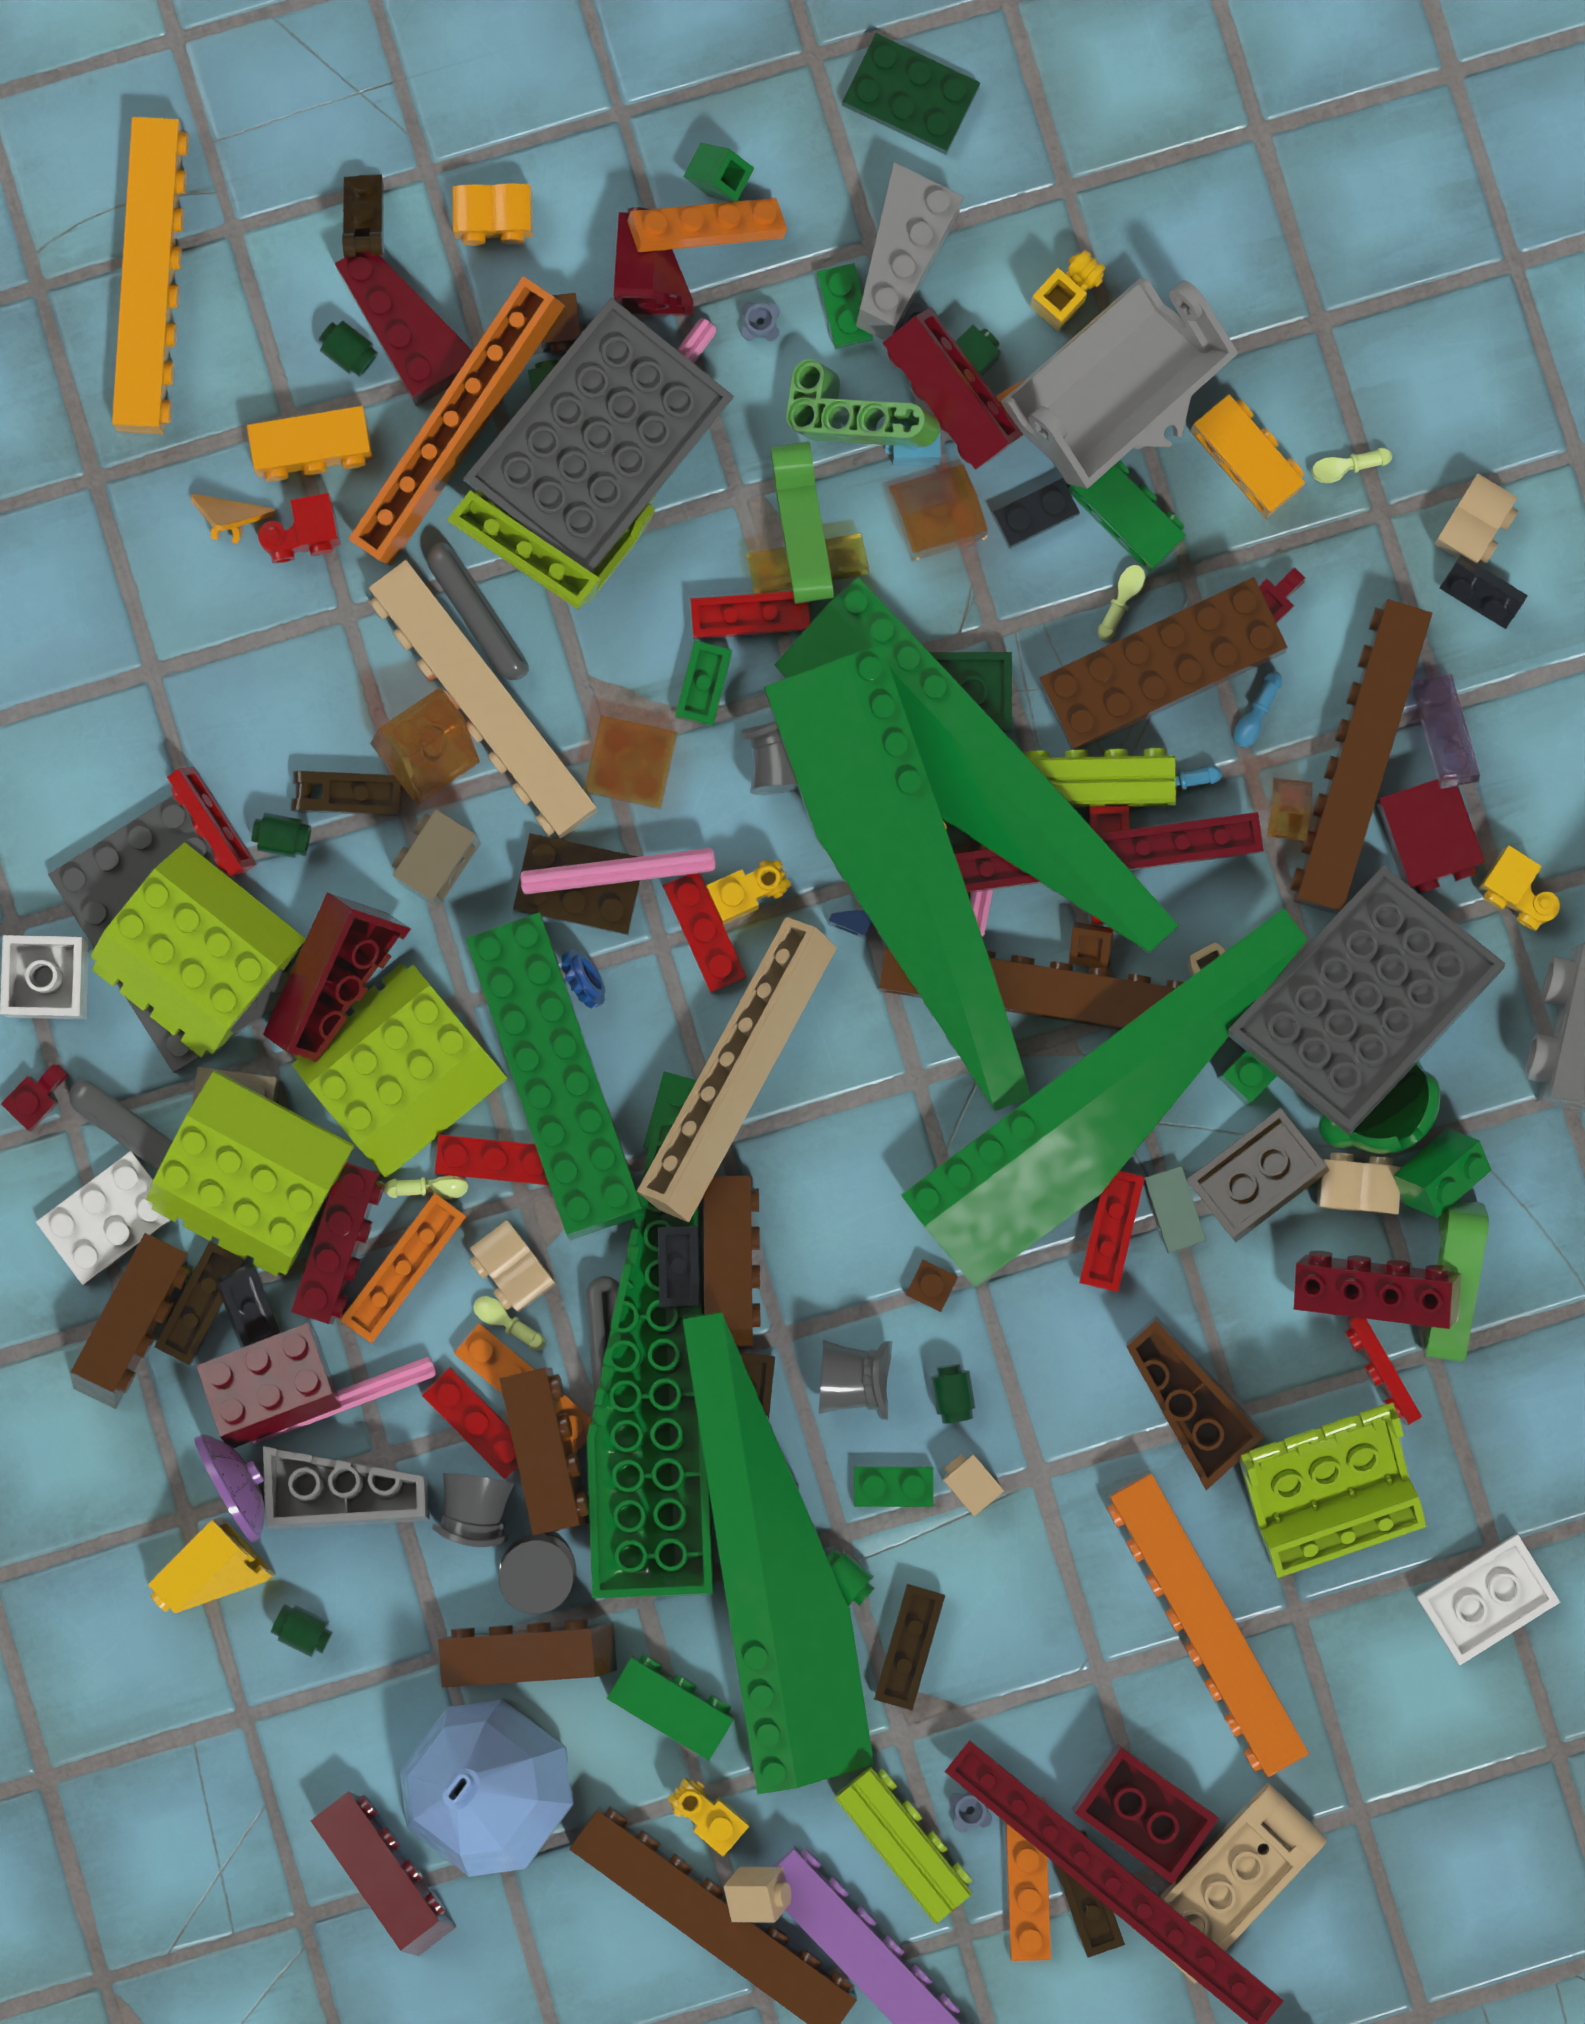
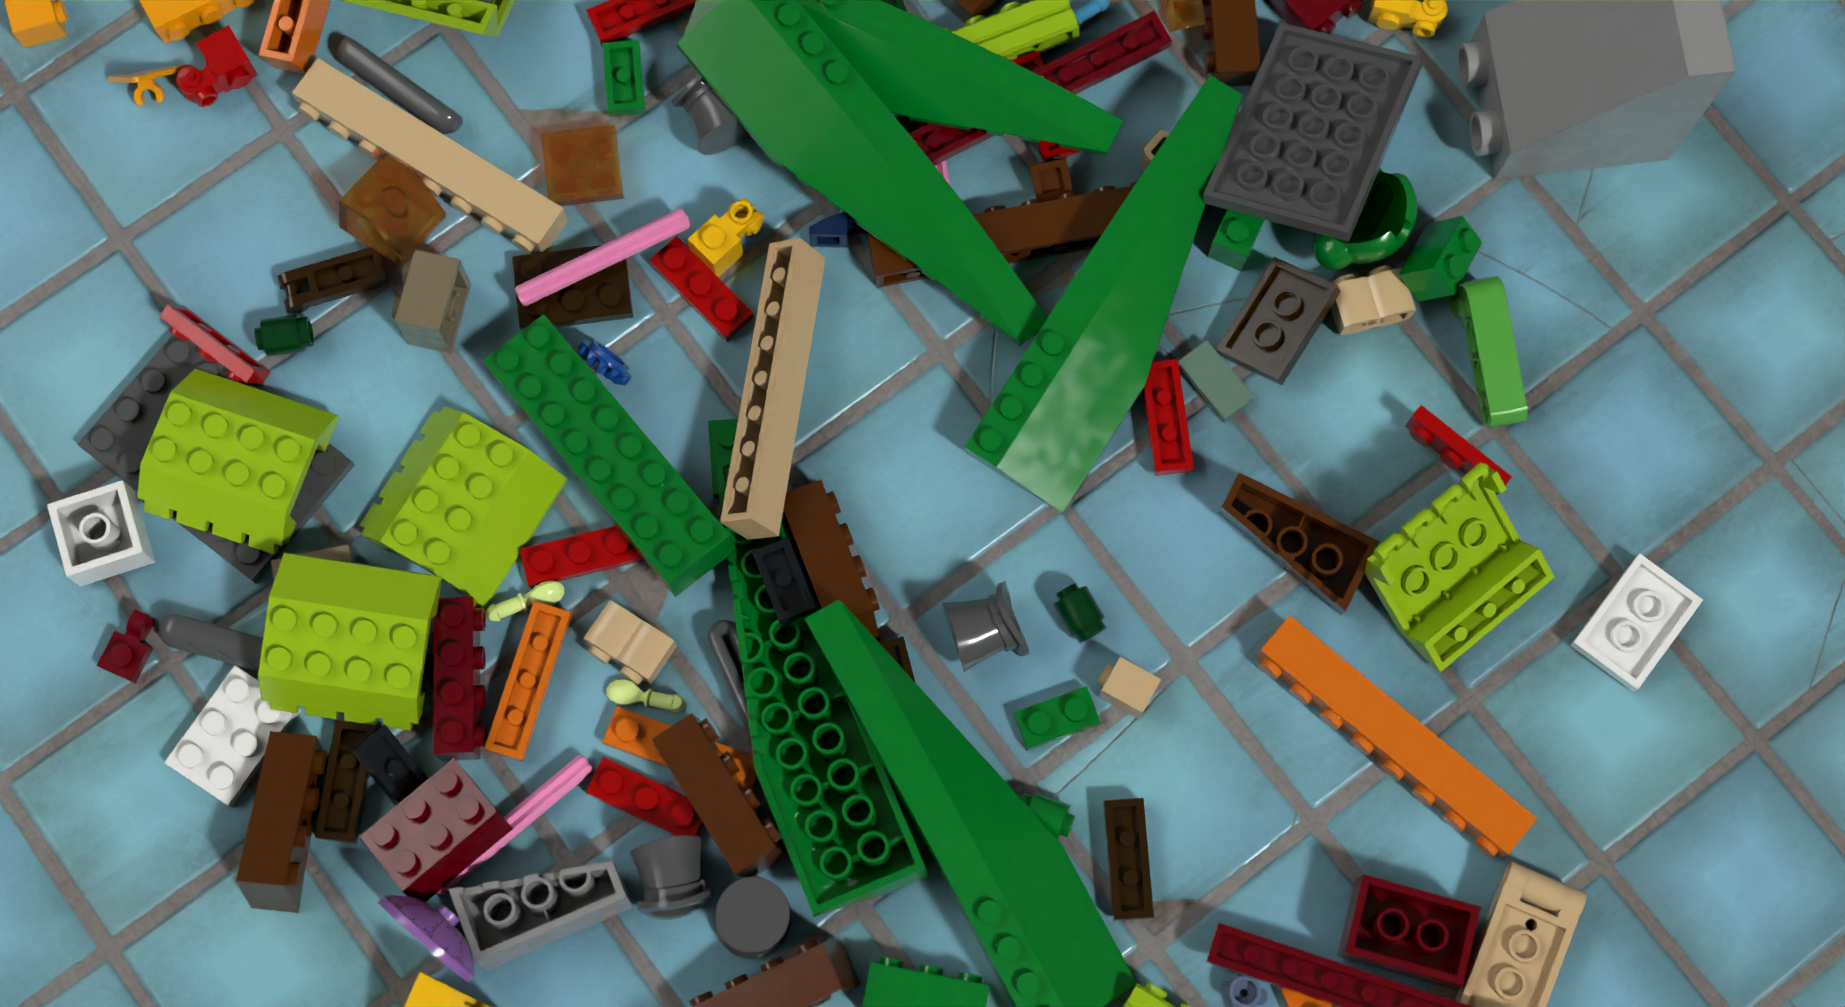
camera: 20 degrees left, 10 degrees down
(331, 974) = (369, 434): dark red wedge -> none
(931, 1285) = (1022, 525): reddish brown plate -> none
(1377, 1290) = (1426, 378): dark red brick -> none

